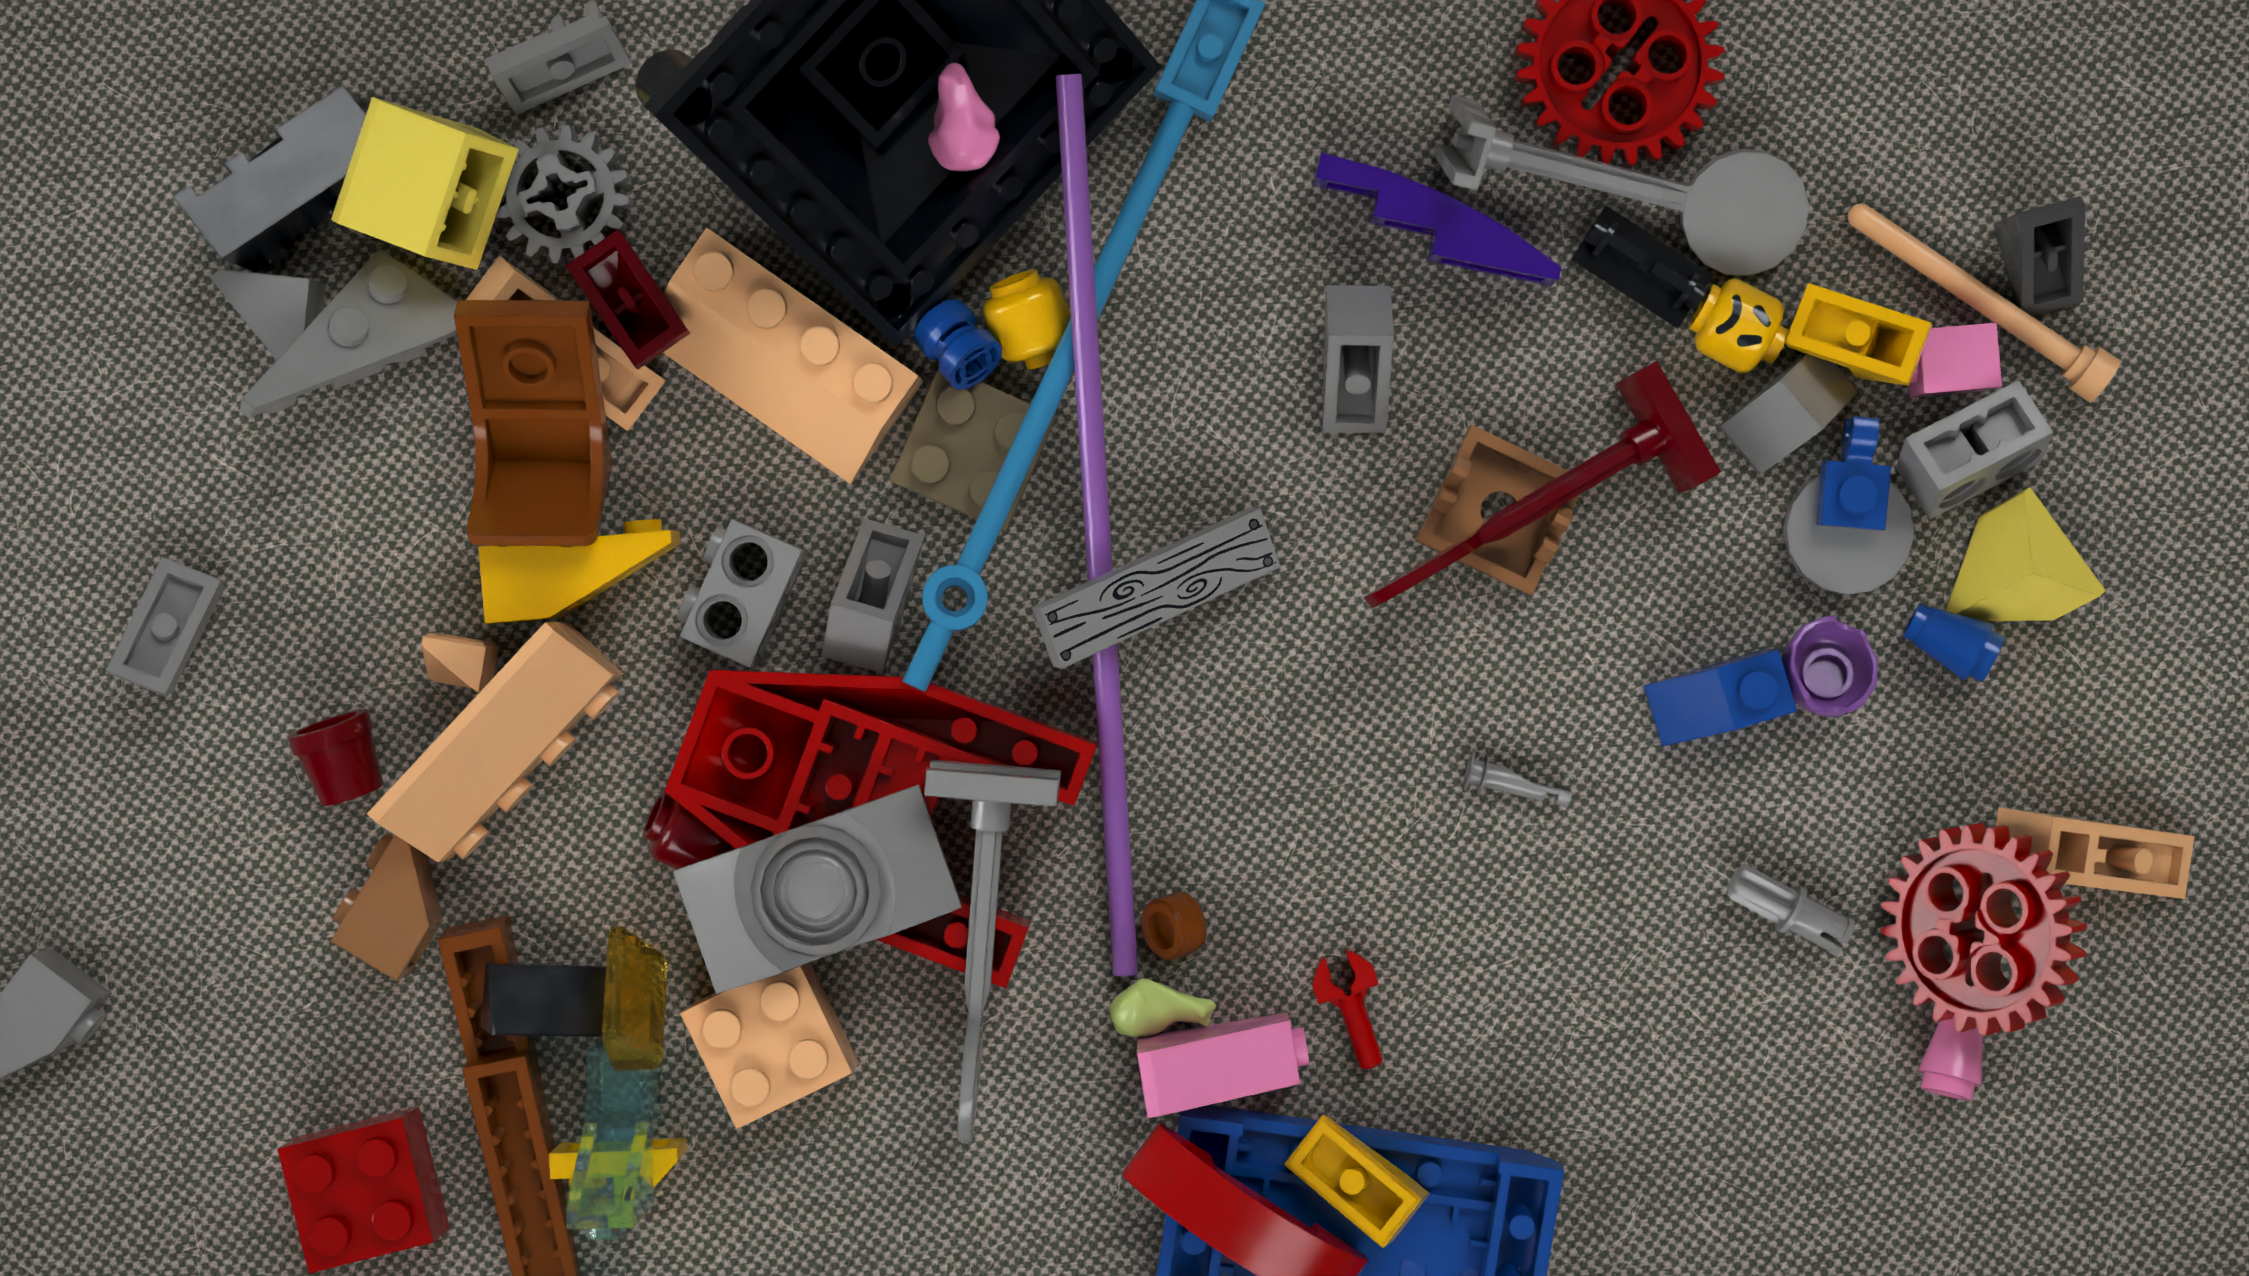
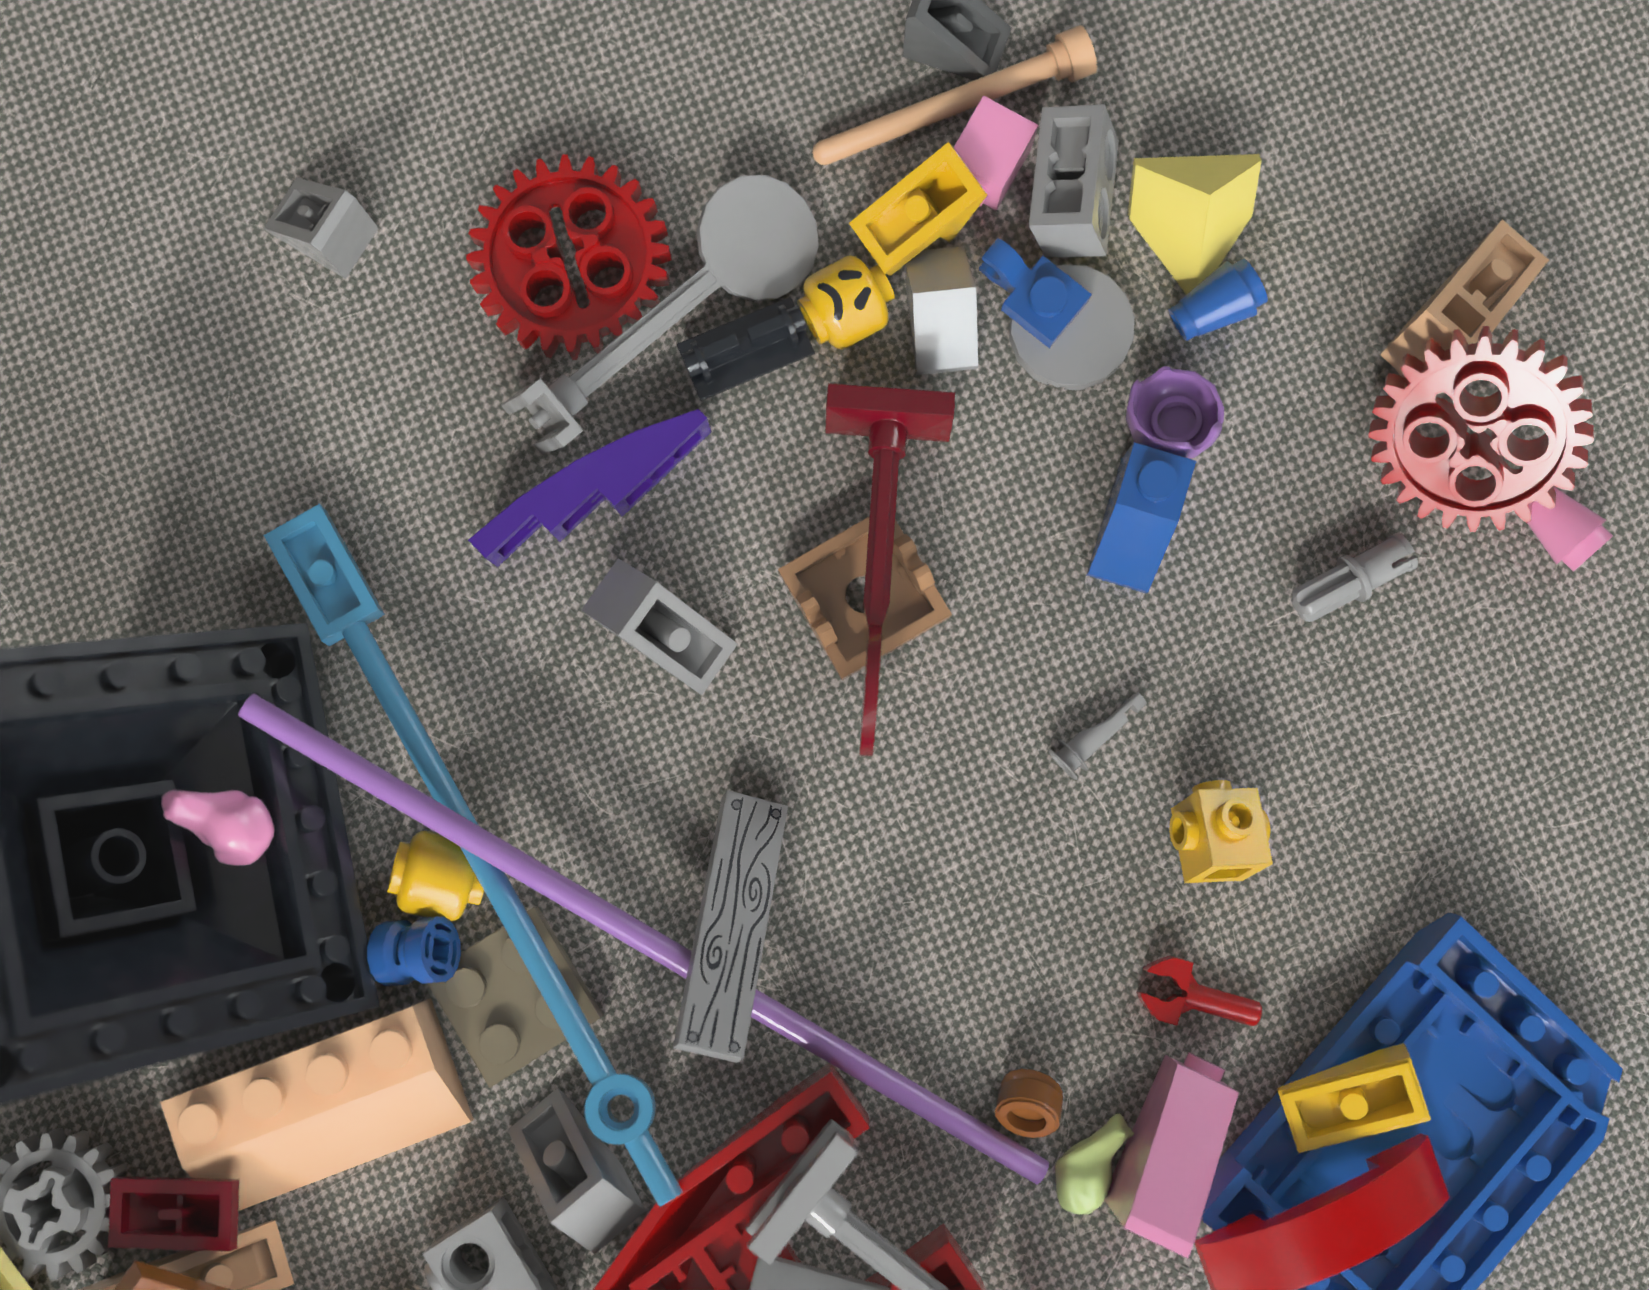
camera: 50 degrees left, 5 degrees down
(1499, 935) = (1220, 833): none -> yellow brick

